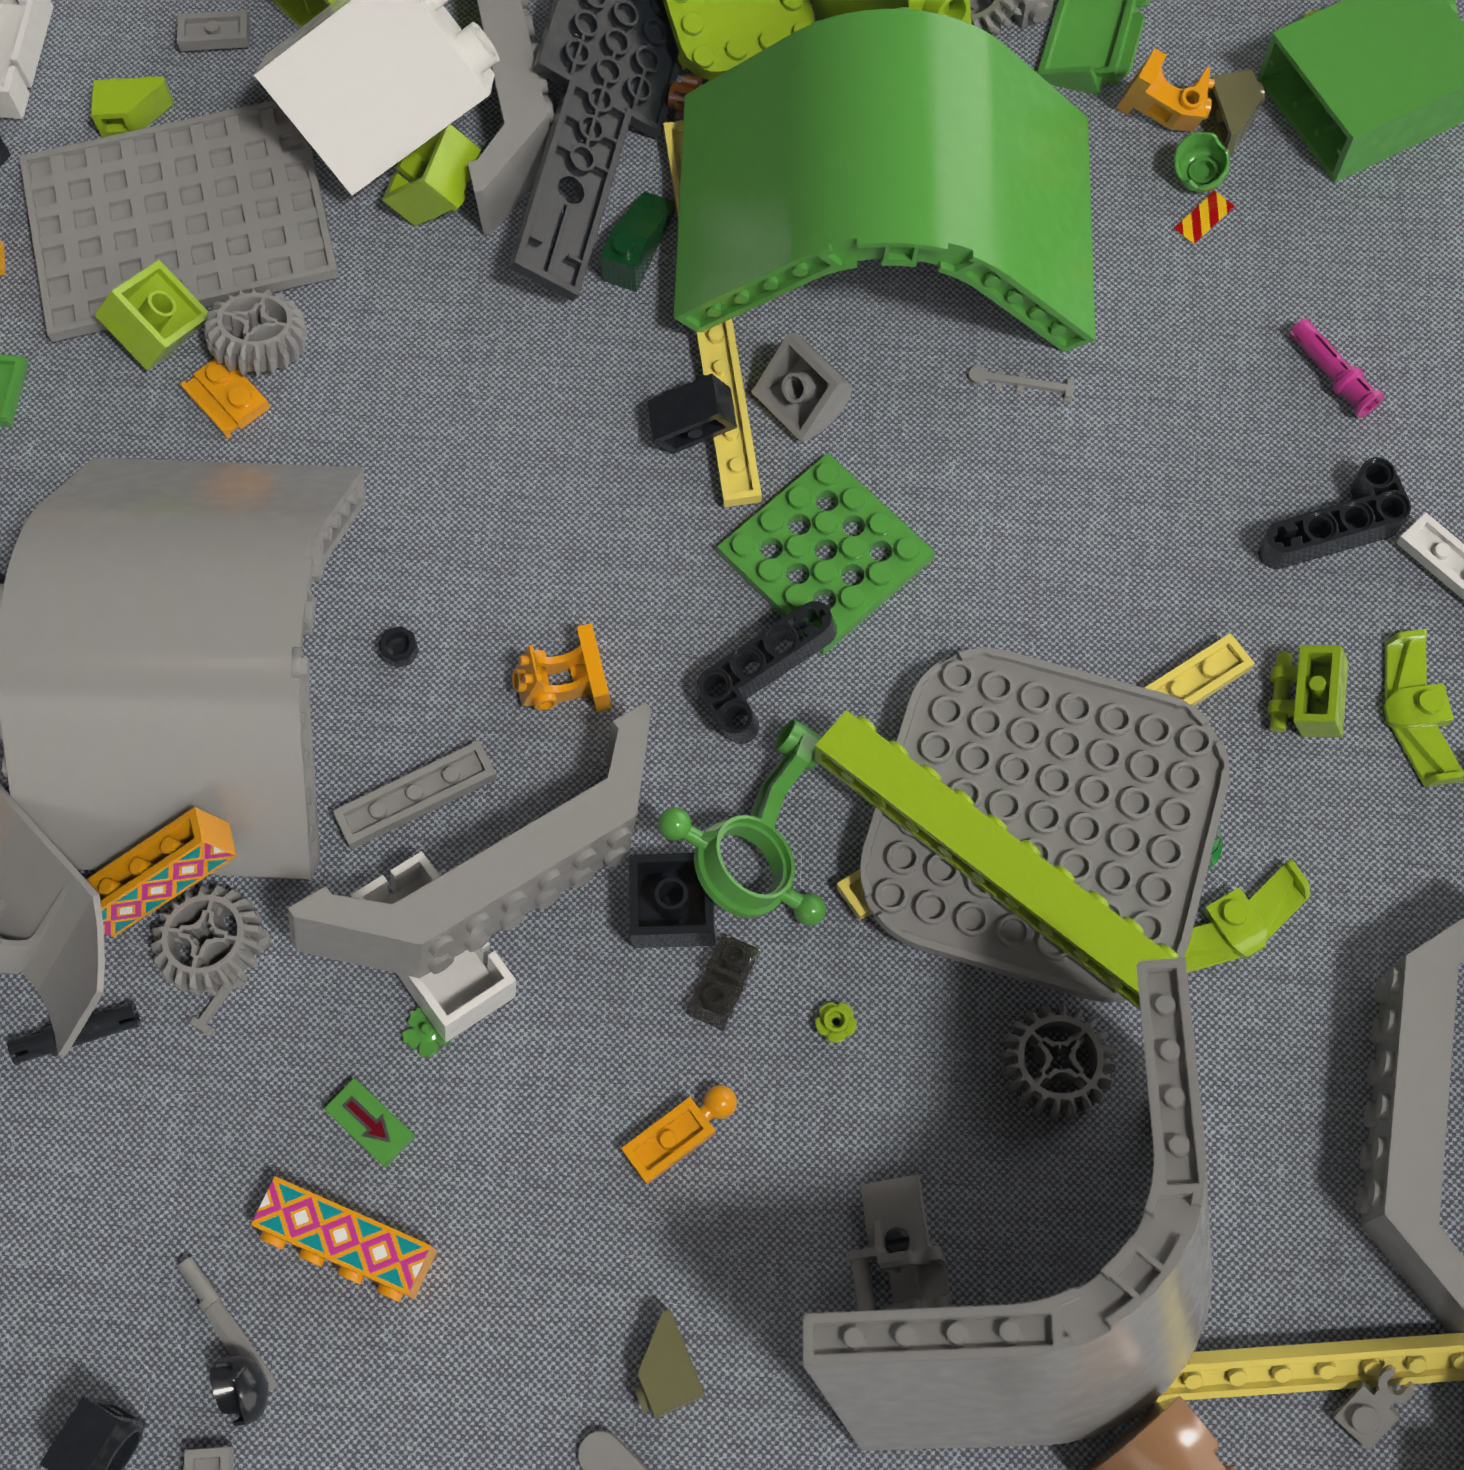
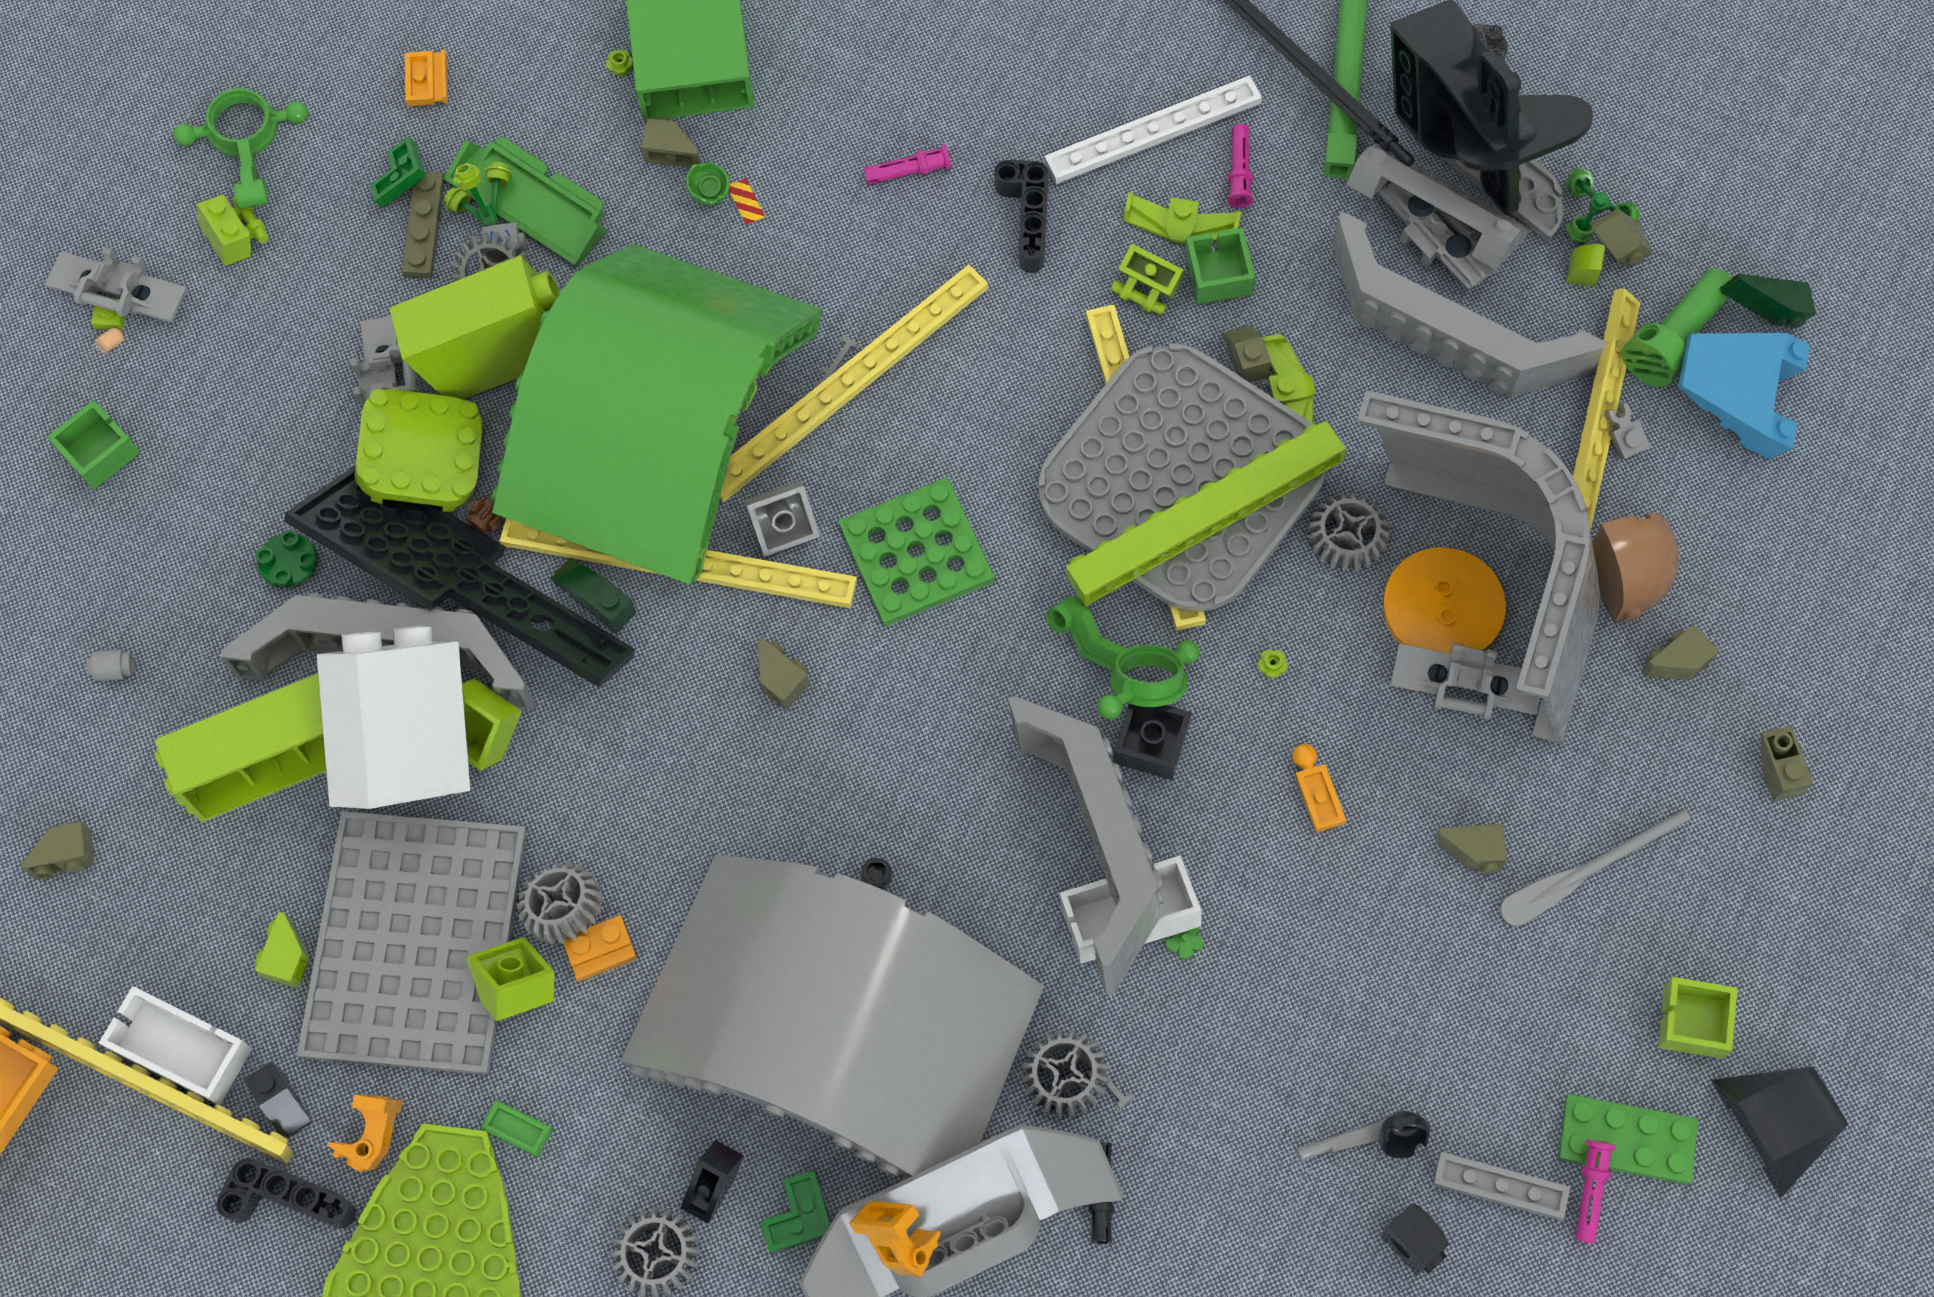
camera: 70 degrees left, 0 degrees up
(162, 868) = (1006, 1075): light orange brick -> none
(213, 30) = (238, 865): light grey plate -> none
(344, 1238) = (1319, 1035): brick -> none
(370, 1123) = (1239, 998): bright green tile -> none
(415, 794) = (1002, 894): light grey plate -> none
(588, 677) = (947, 744): light orange tile -> none
(606, 457) = (779, 676): none -> olive slope
(692, 413) = (771, 600): black brick -> none
(723, 982) = (1218, 728): clear smoke slope -> none
(772, 666) = (997, 613): black beam -> none
(1009, 1221) = (1444, 600): none -> light orange plate
(1018, 403) = (851, 379): none -> light yellow plate
(1165, 103) = (633, 192): light orange tile -> none
(1261, 850) = (1248, 353): none -> olive slope
(1359, 773) = (1220, 273): none -> bright green piece

